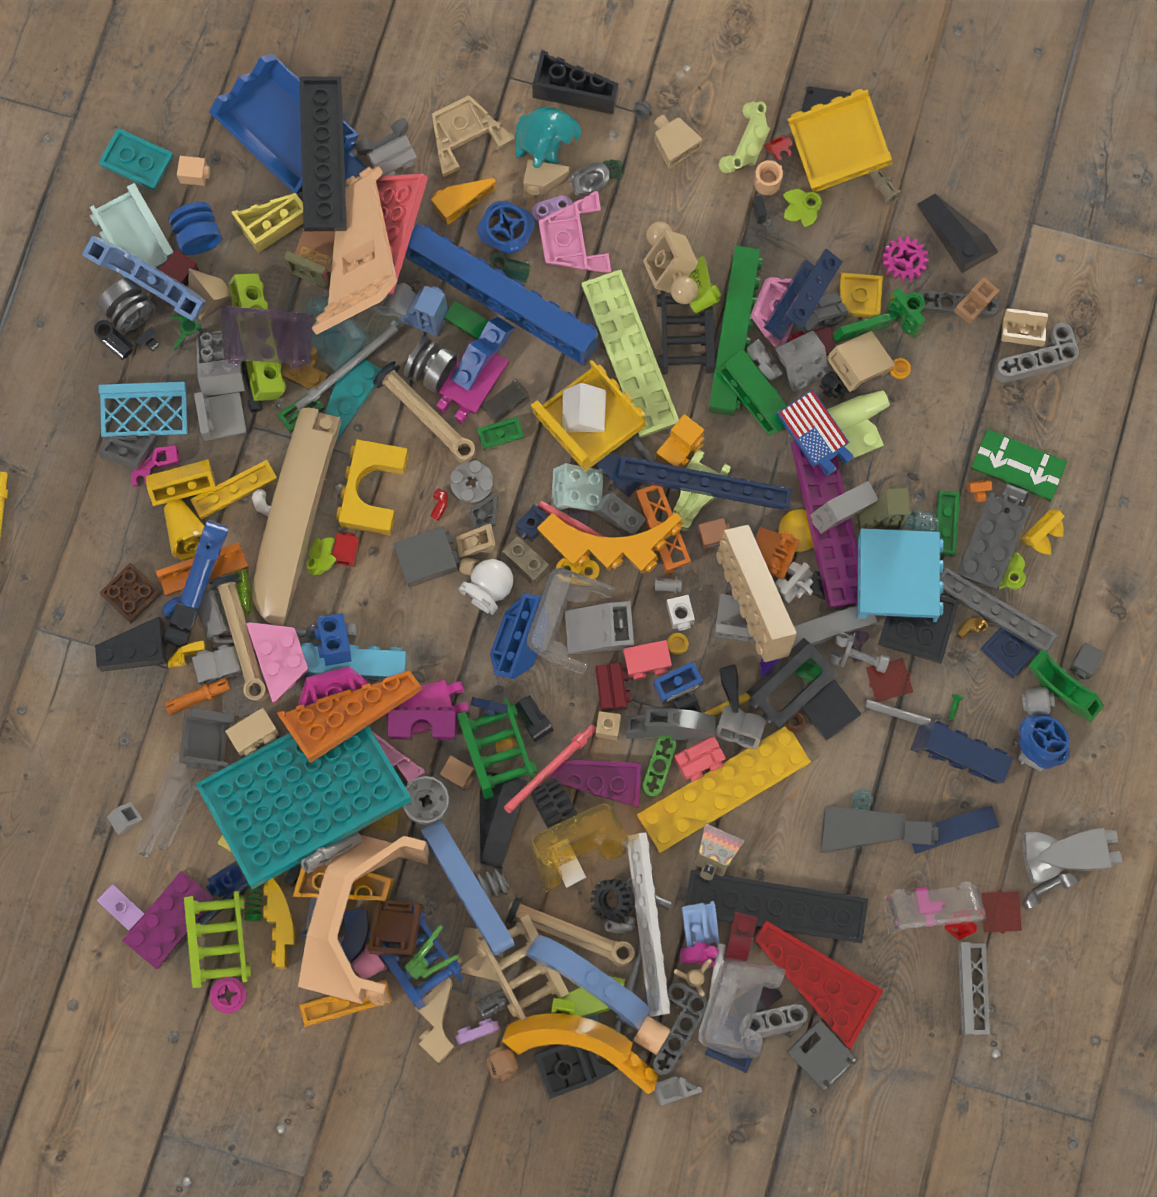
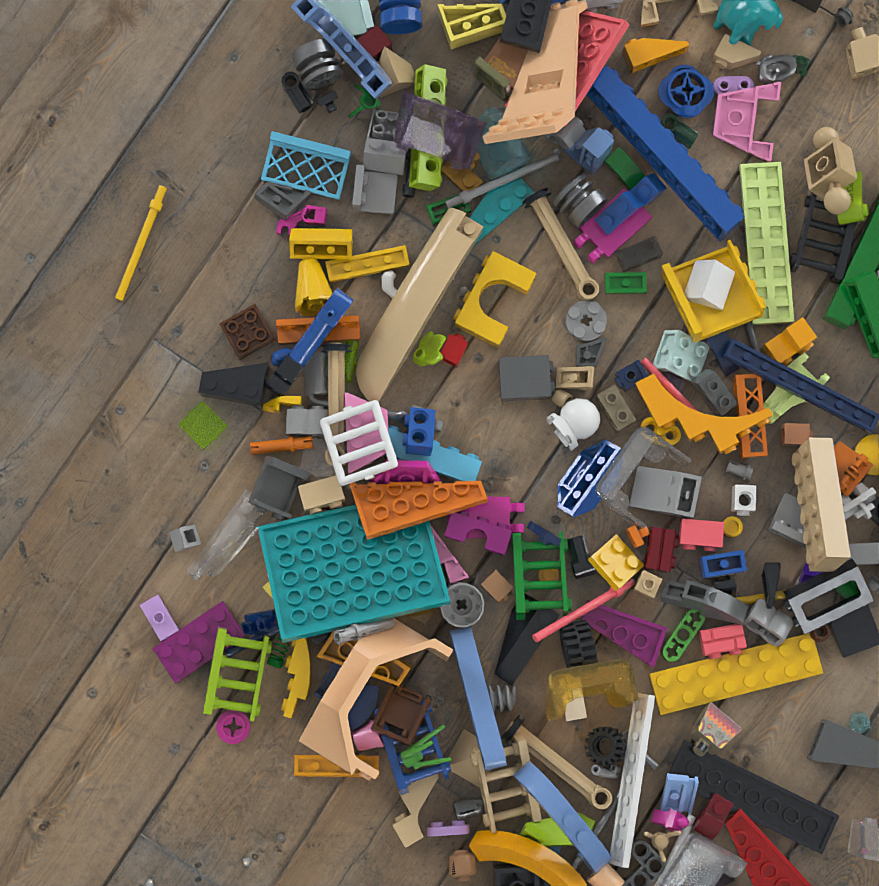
camera: 15 degrees right, 5 degrees up
(111, 700) = (202, 425): none -> clear neon green piece
(302, 661) = (331, 442): none -> white bar
(442, 497) = (552, 334): red arm -> none
(570, 713) = (615, 562): none -> yellow plate
(584, 680) = (635, 536): none -> orange tile

